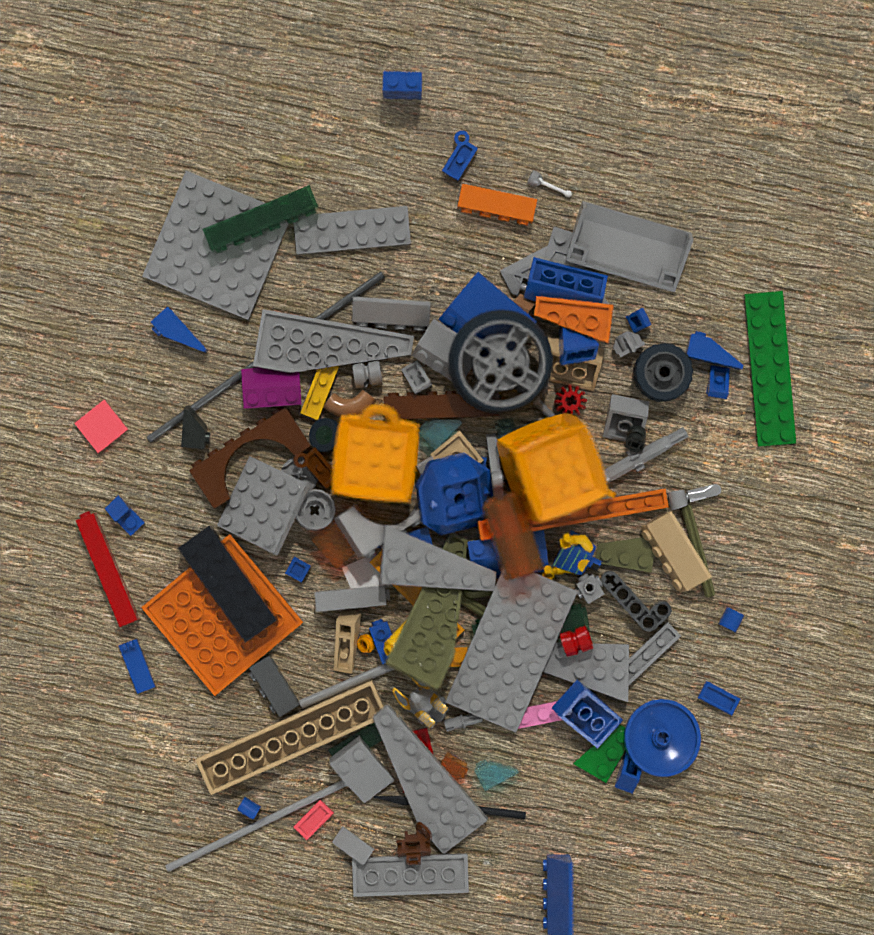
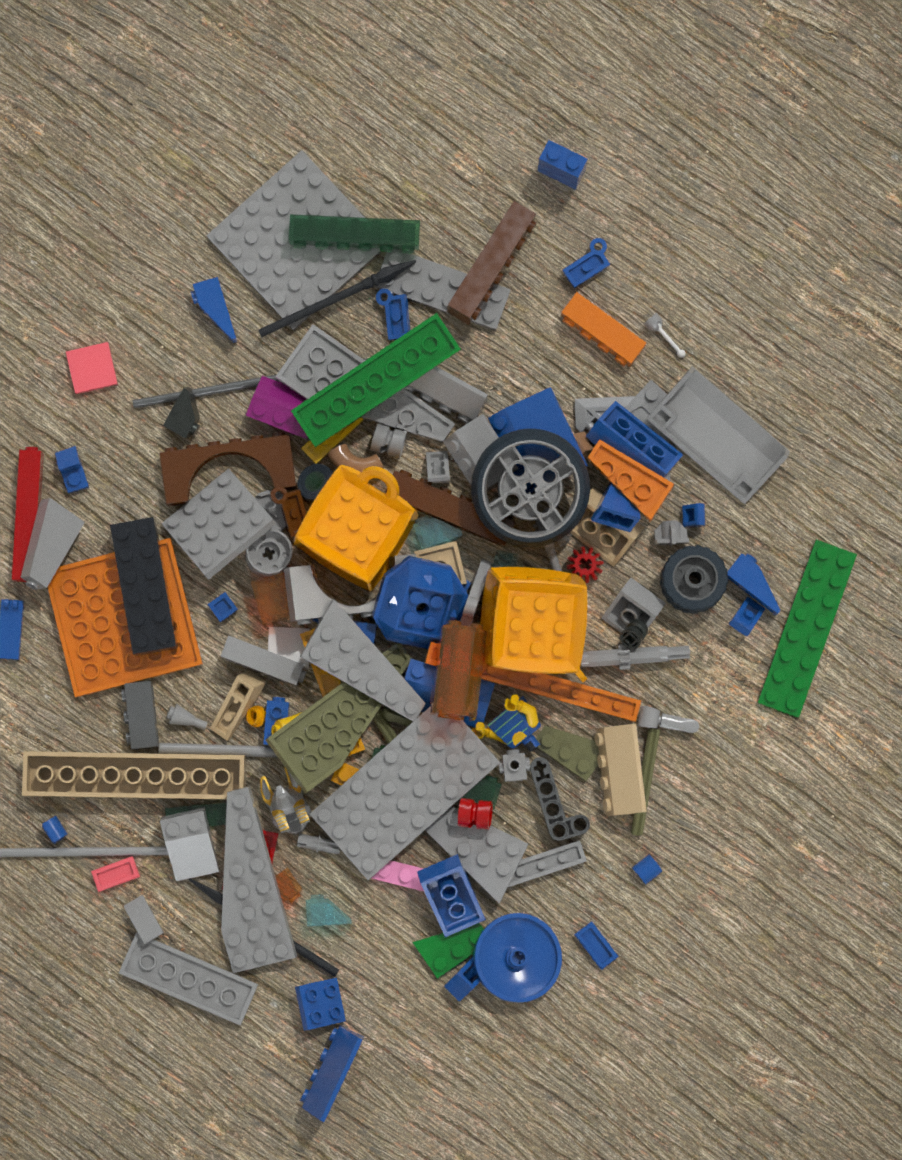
camera: 25 degrees right, 5 degrees down
(136, 584) = (49, 543): none -> light grey slope
(301, 242) = (383, 276): none -> black piece
(304, 672) = (180, 716): none -> light grey cone
(325, 269) = (396, 313): none -> blue hinge
(335, 332) = (376, 380): none -> green plate
(382, 192) = (491, 262): none -> reddish brown brick
(421, 838) = (217, 946): reddish brown piece -> none
(523, 846) = (320, 1004): none -> blue plate

